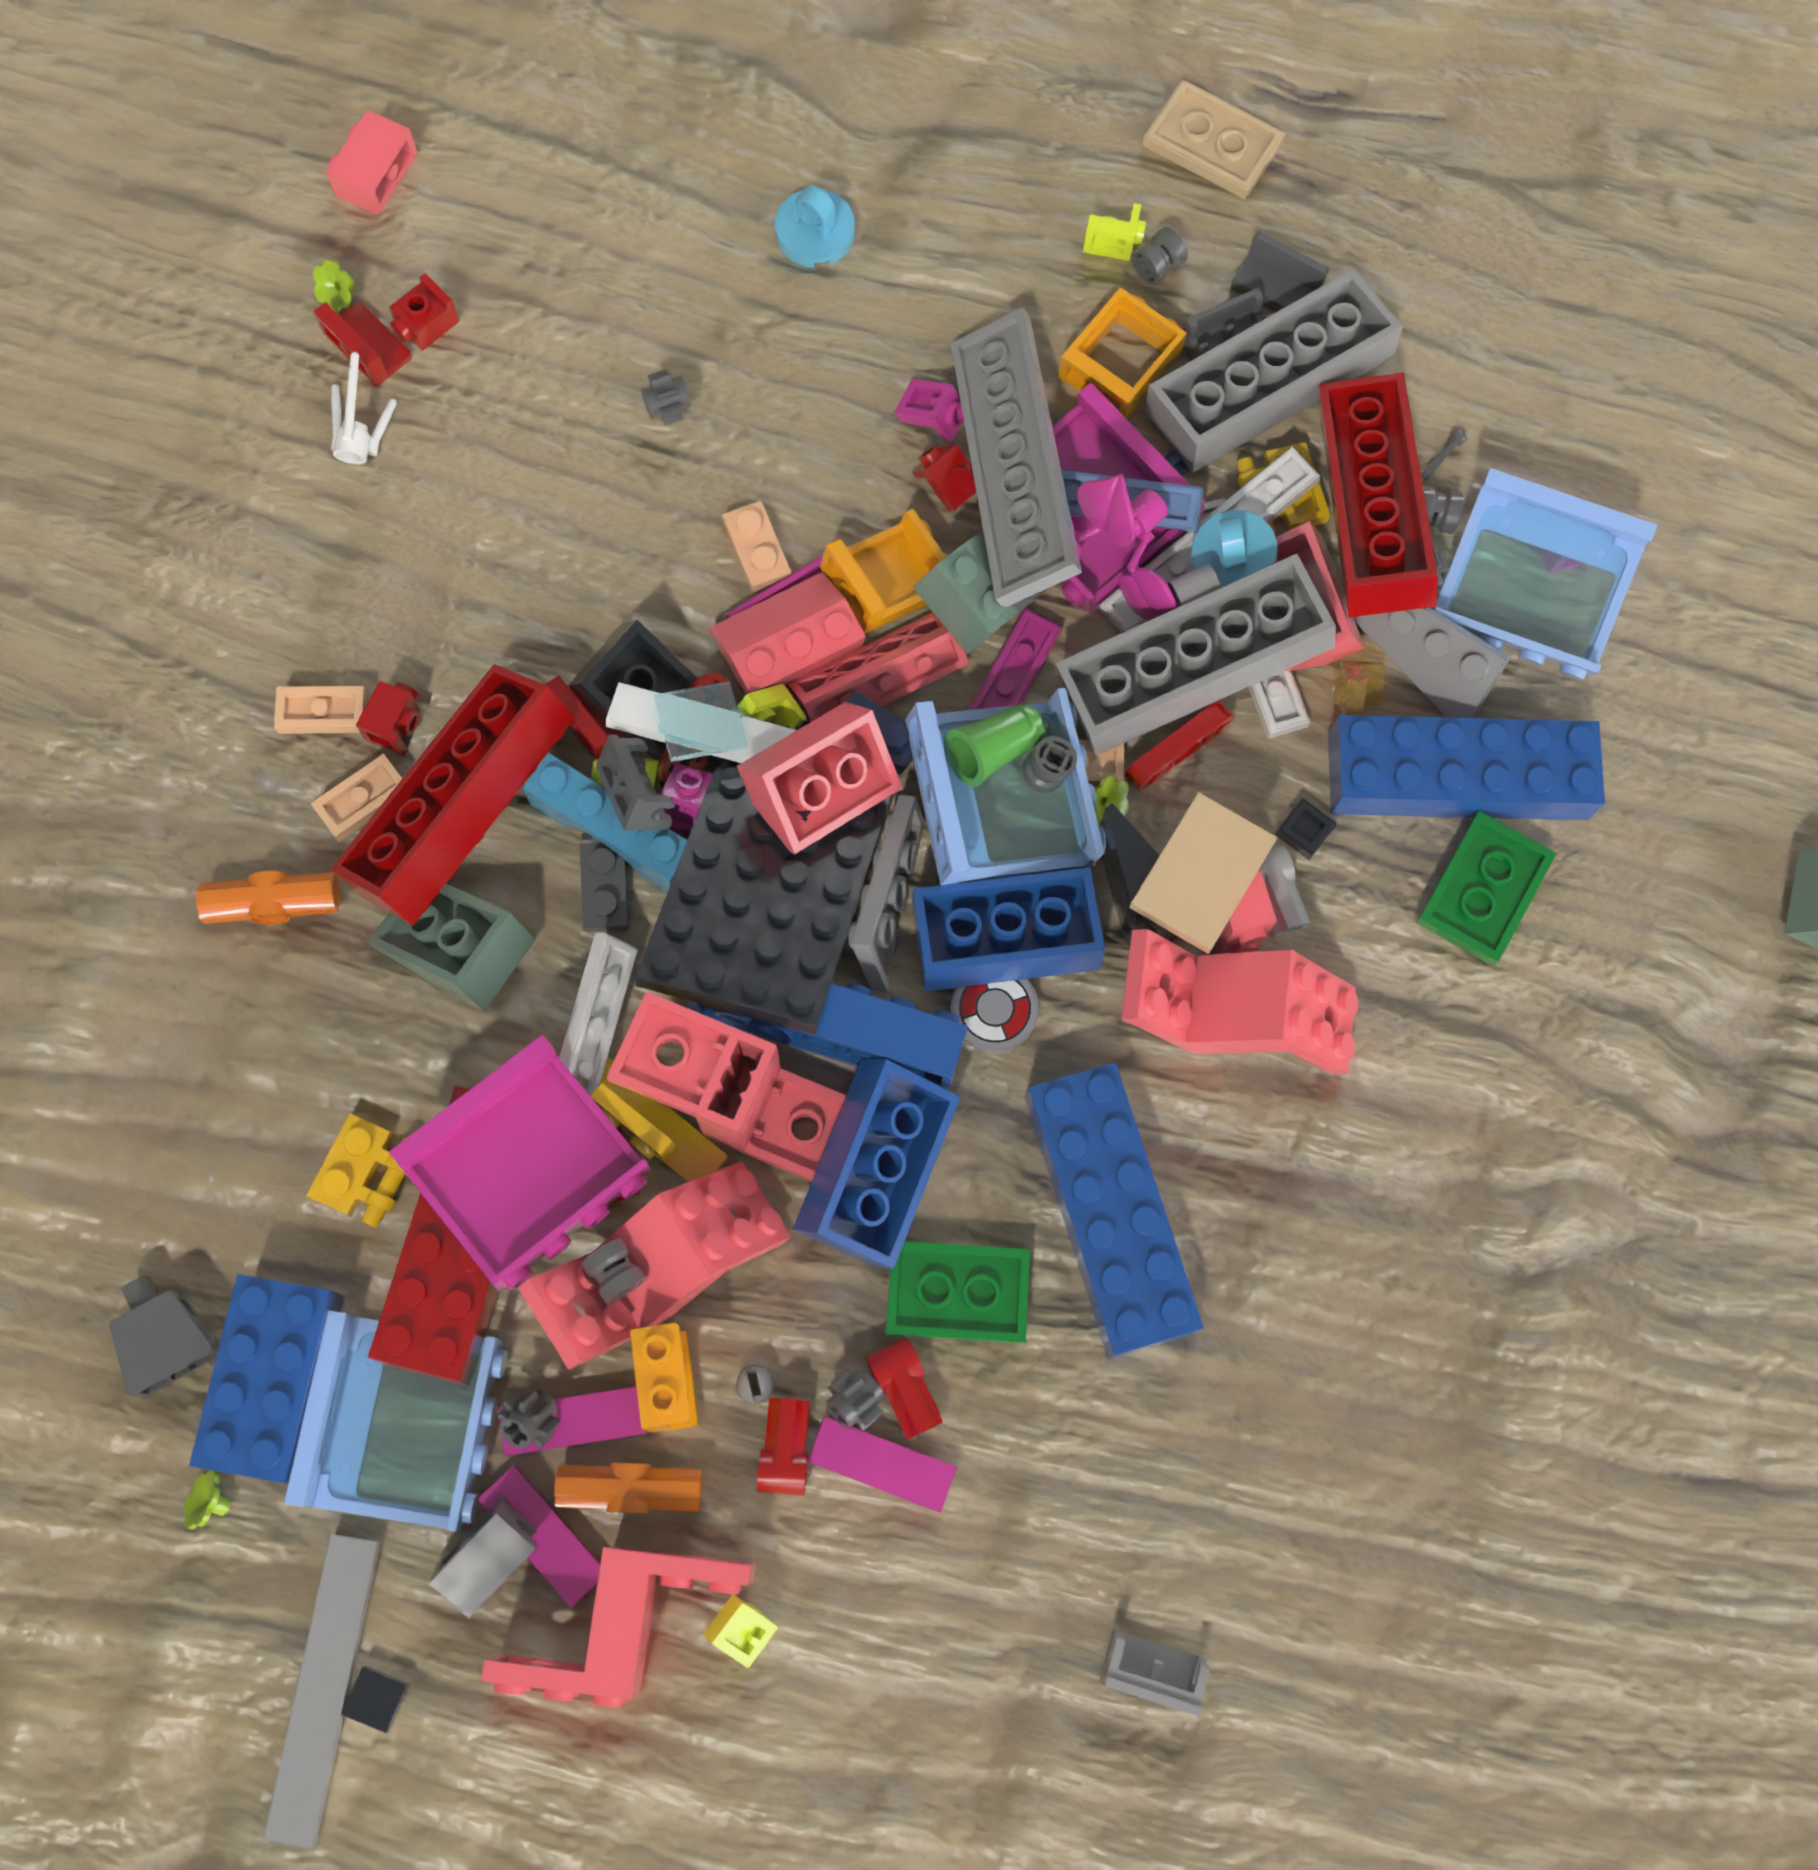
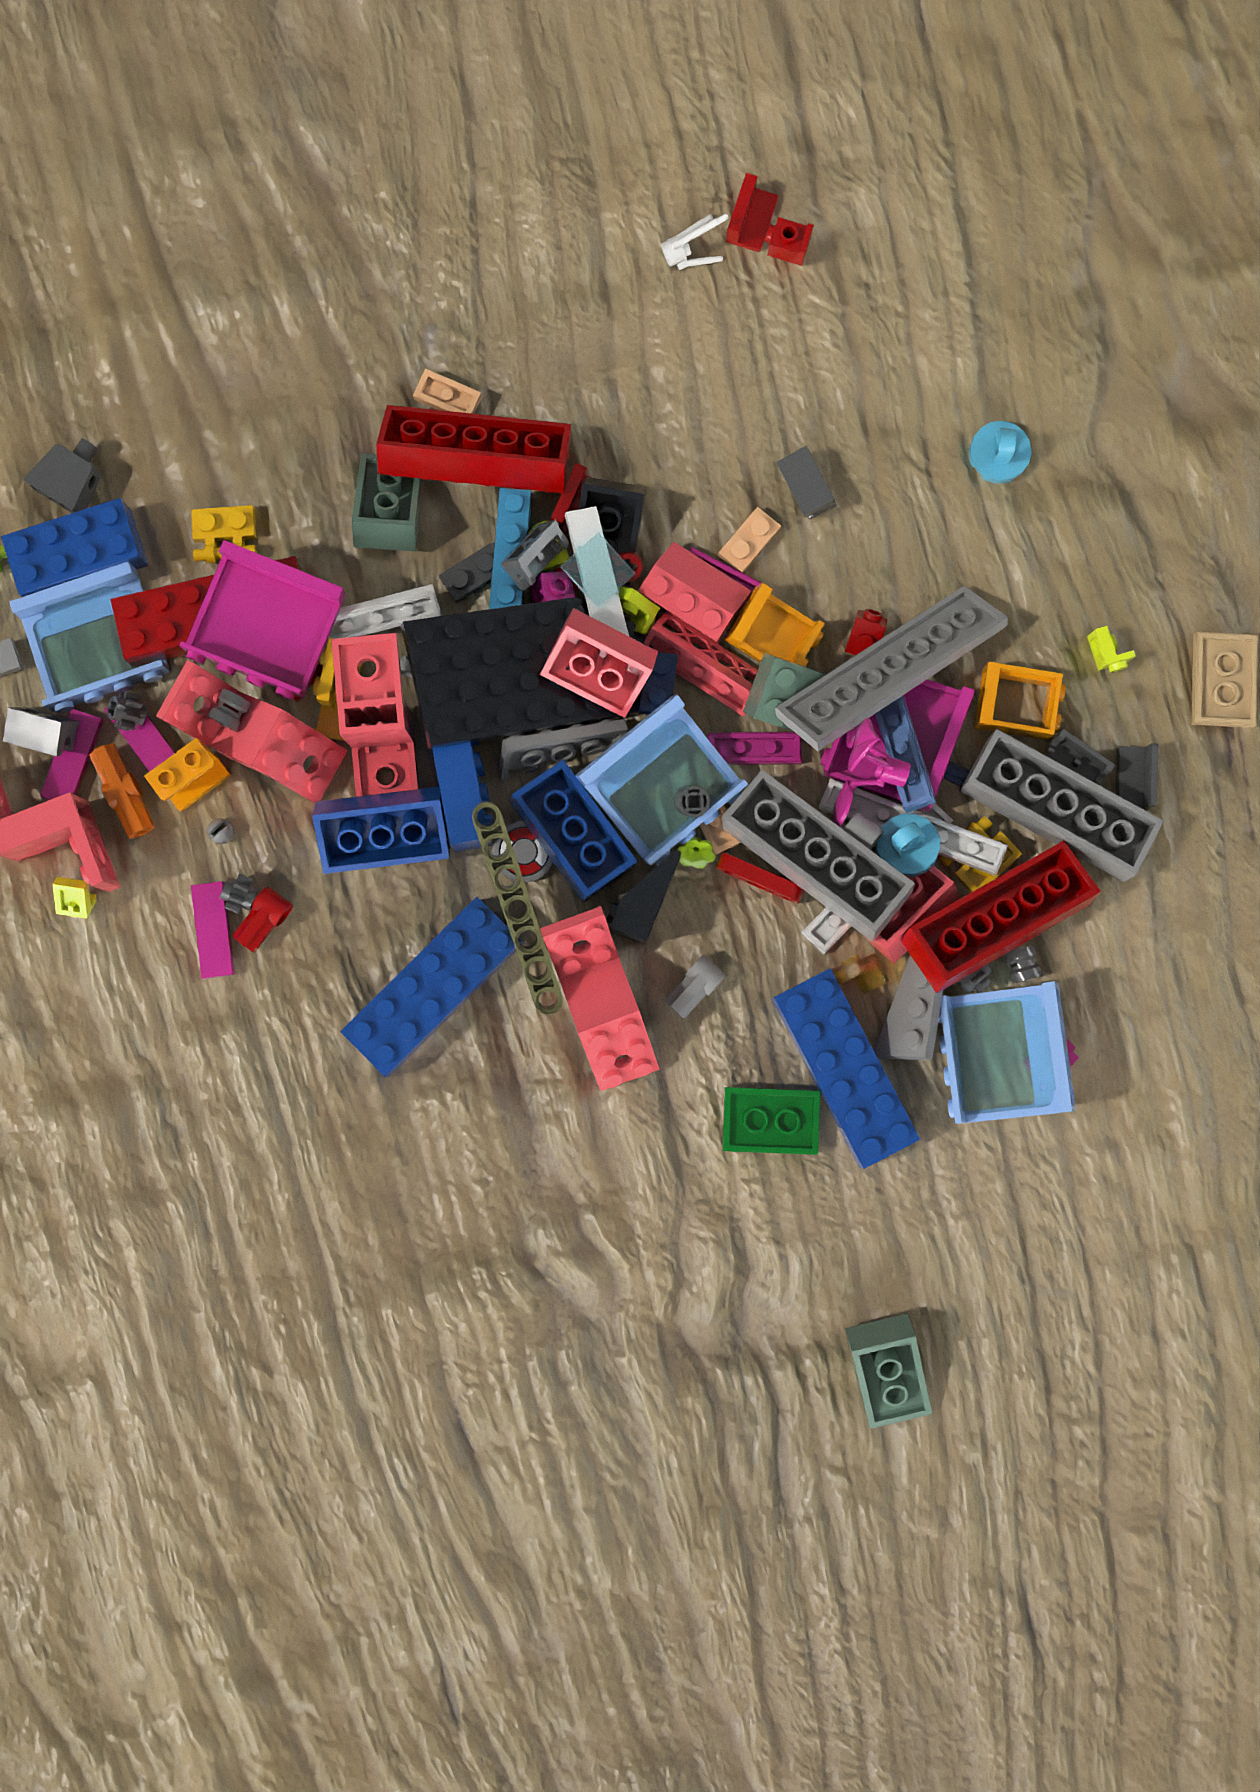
camera: 65 degrees right, 10 degrees up
(268, 898) = (354, 379): orange piece -> none
(319, 709) = (489, 338): light nougat plate -> none
(333, 285) = (776, 173): lime plant -> none
(371, 162) = (878, 143): coral brick -> none
(390, 716) = (507, 382): red brick -> none
(665, 397) = (817, 425): dark grey gear -> none
(727, 442) = (806, 483): none -> dark grey hinge
(784, 1459) = (184, 870): red piece -> none
(932, 406) = (908, 597): dark pink bracket -> none
(959, 1293) = (335, 921): green plate -> none
(993, 742) = (684, 758): bright green plant -> none
(1057, 1042) = (524, 922): none -> olive beam
(1155, 1672) = (174, 1150): light grey hinge -> none
(1163, 253) = (1108, 688): dark grey wheel -> none
(1203, 872) = (663, 931): tan tile -> none
(1249, 921) = (660, 971): coral brick -> none
(1305, 829) = (750, 987): black tile -> none
(1457, 438) = (1088, 953): dark grey hinge -> none

